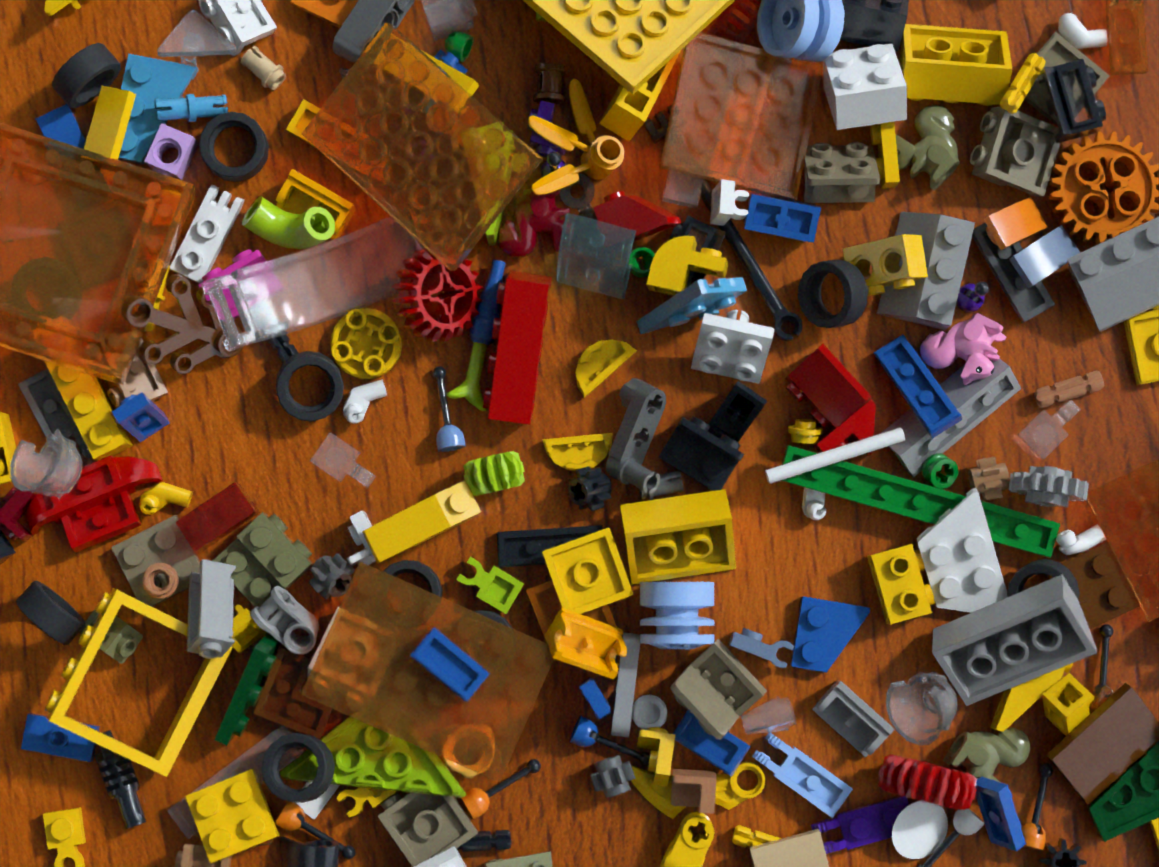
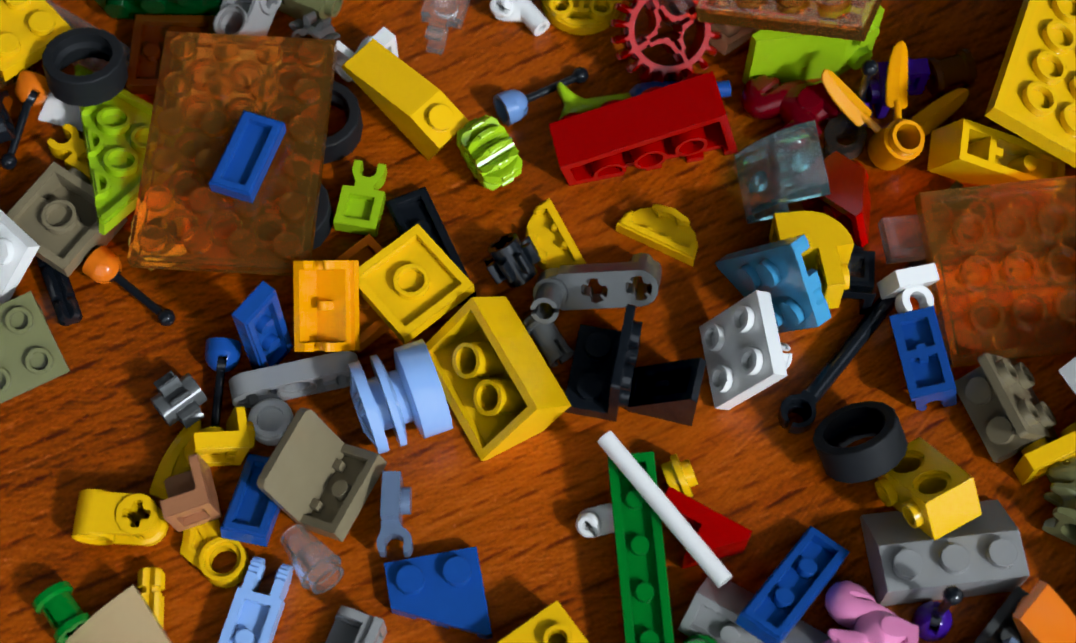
camera: 70 degrees right, 20 degrees down
(826, 388) = (744, 471): red slope -> none

